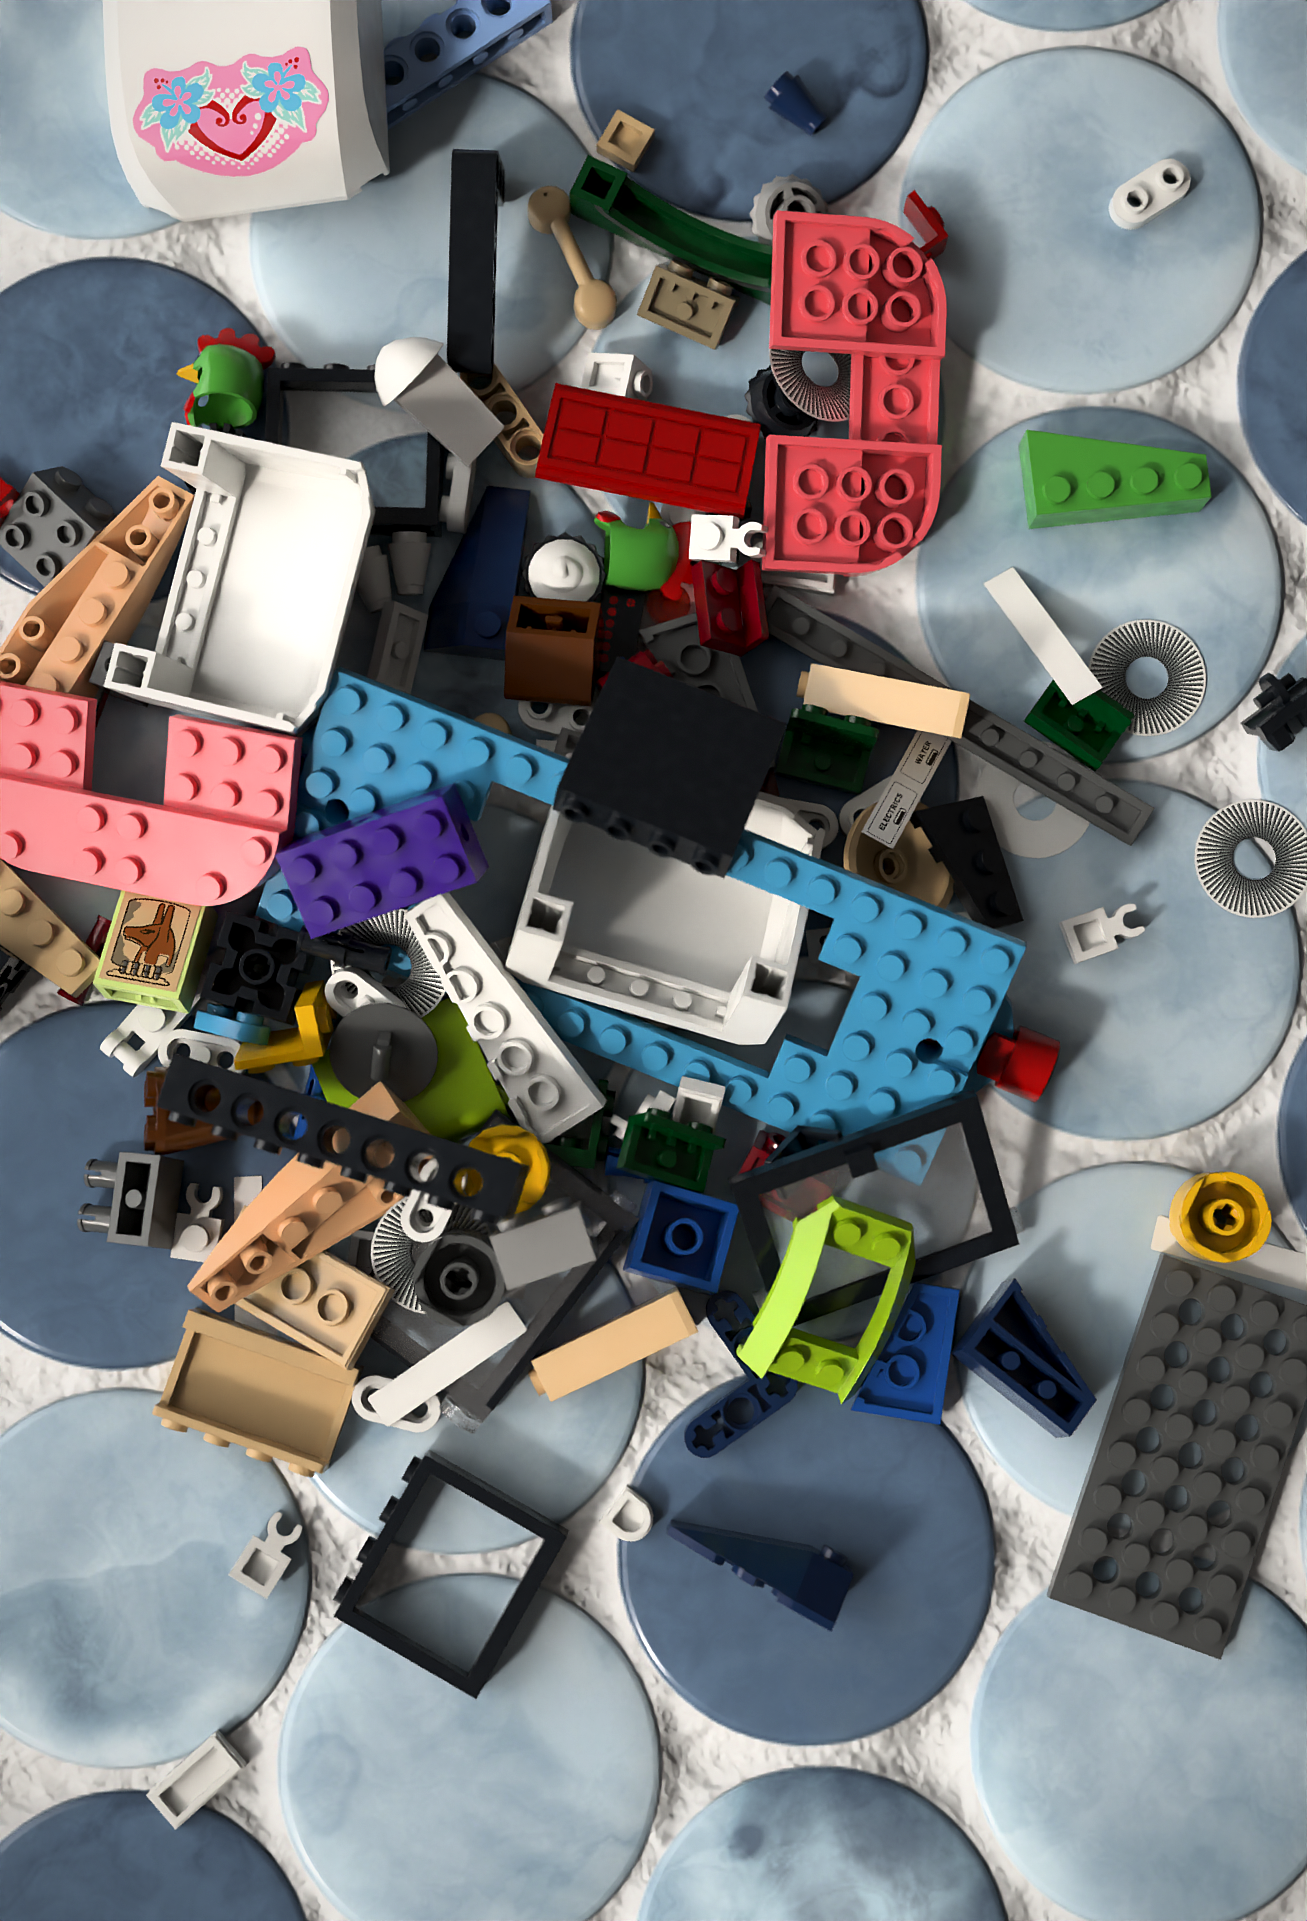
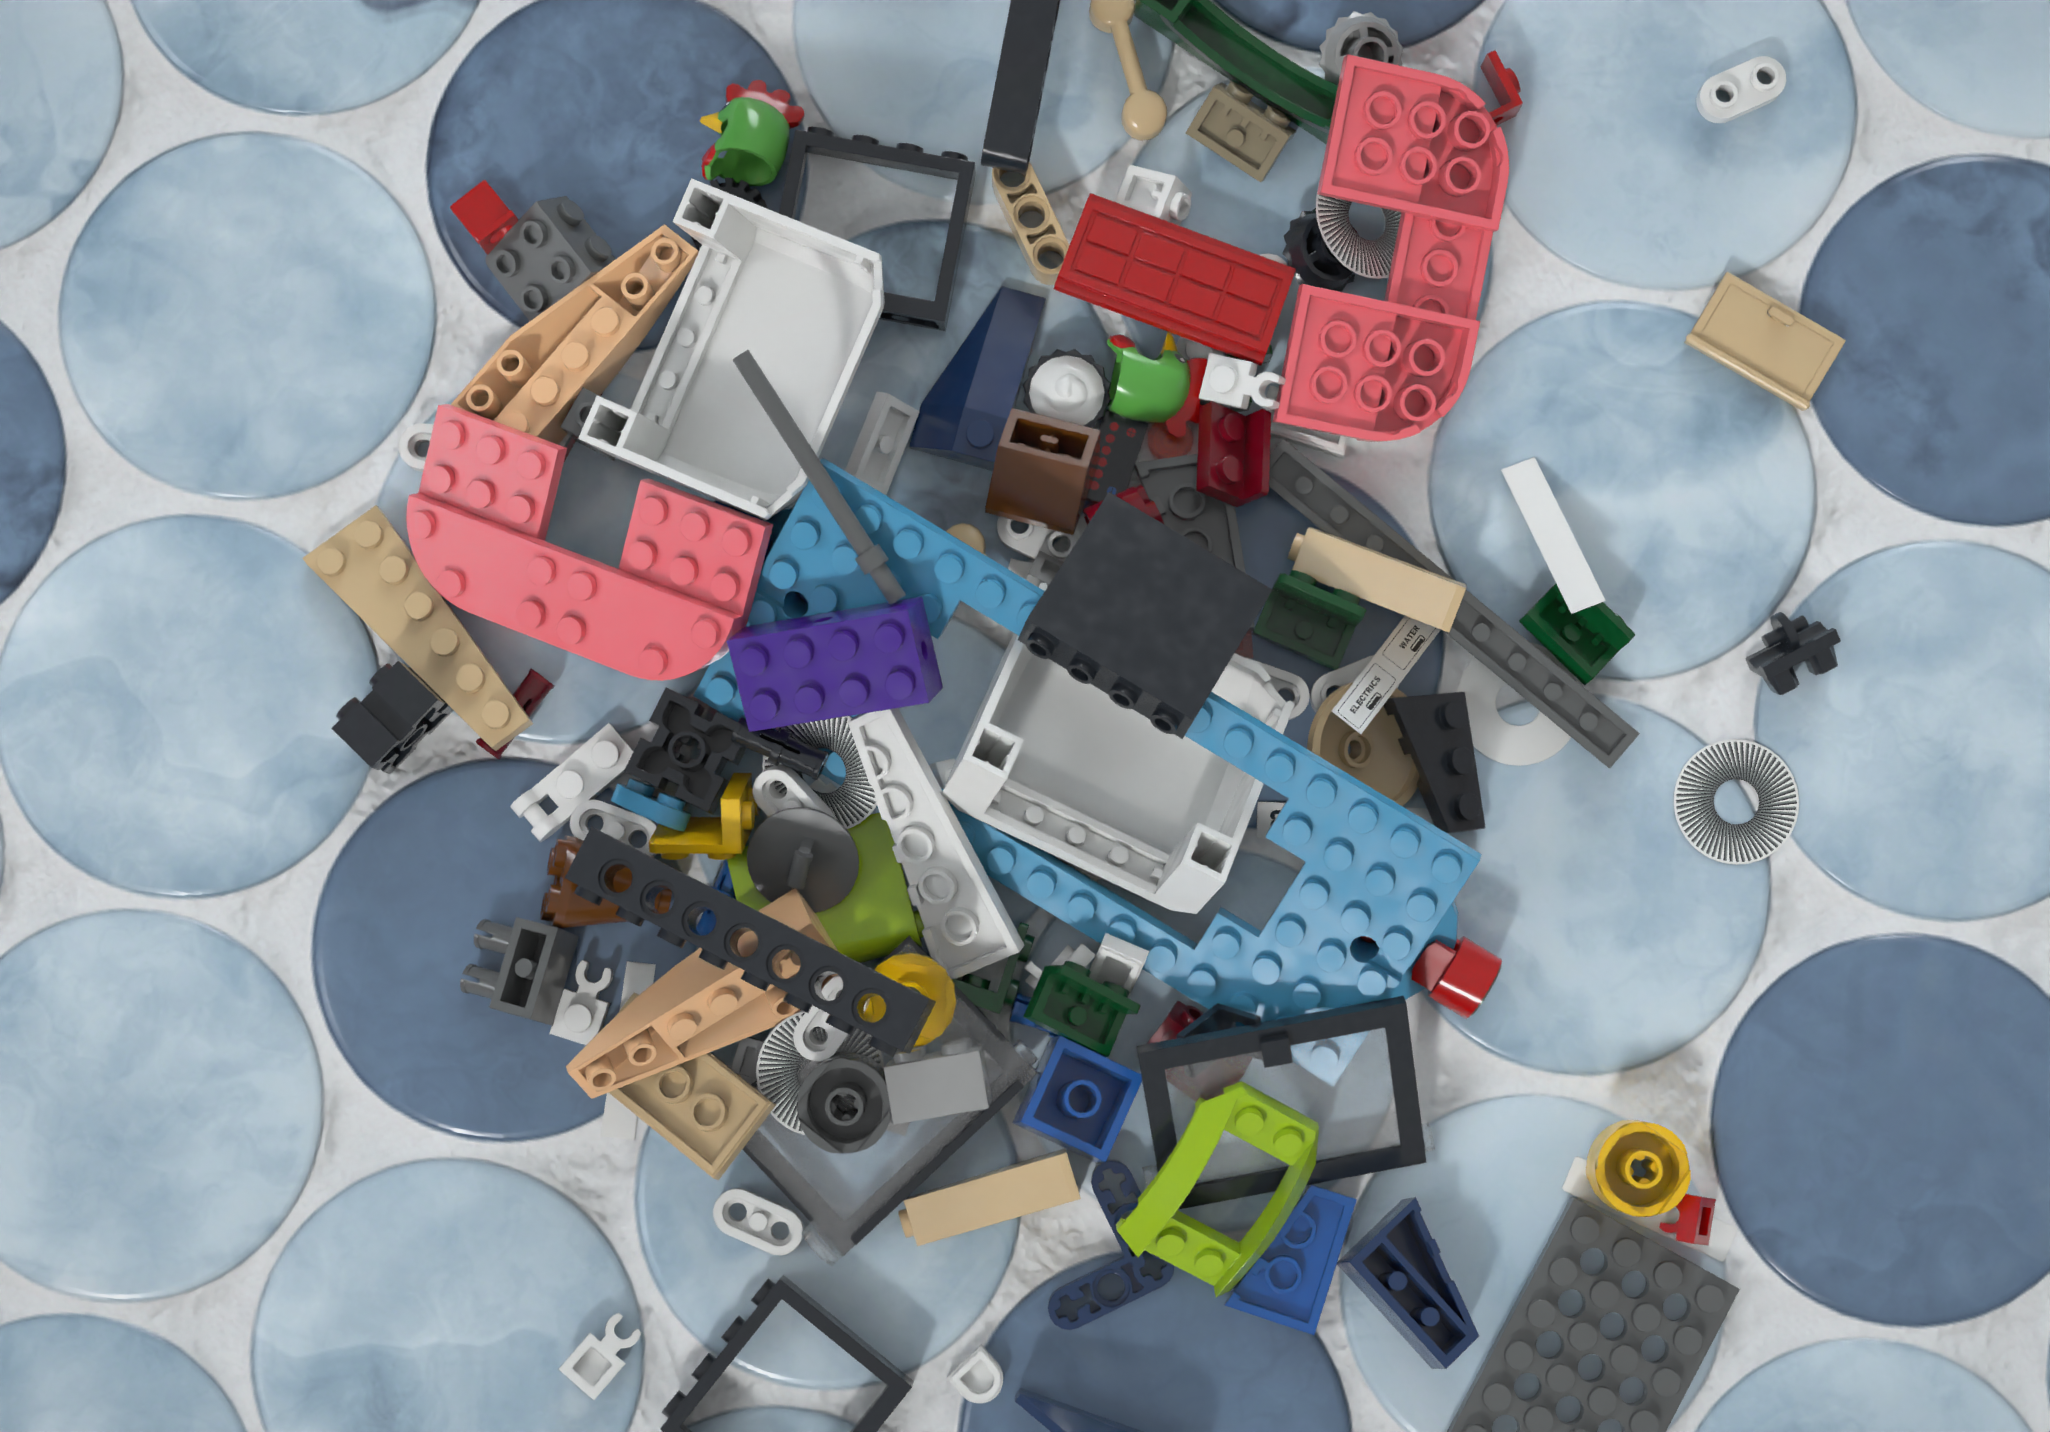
camera: 10 degrees right, 0 degrees up
(155, 952) = (584, 717): brick -> none
(257, 1393) = (617, 1187): tan panel -> none
(374, 580) = (872, 369): white cone -> none
(399, 753) = (870, 557): none -> dark grey bar
(409, 561) = (909, 353): white cone -> none
(435, 396) = (963, 189): white piece -> none
(447, 1364) = (816, 1190): white sticker -> none
(457, 506) = (966, 304): white plate -> none
(1095, 934) = (1556, 853): white plate -> none
(1102, 480) = (1640, 383): bright green wedge -> none
(1174, 651) = (1694, 585): sticker -> none
(1186, 420) = (1761, 347): none -> tan door
(1280, 1257) = (1694, 1220): none -> red tile

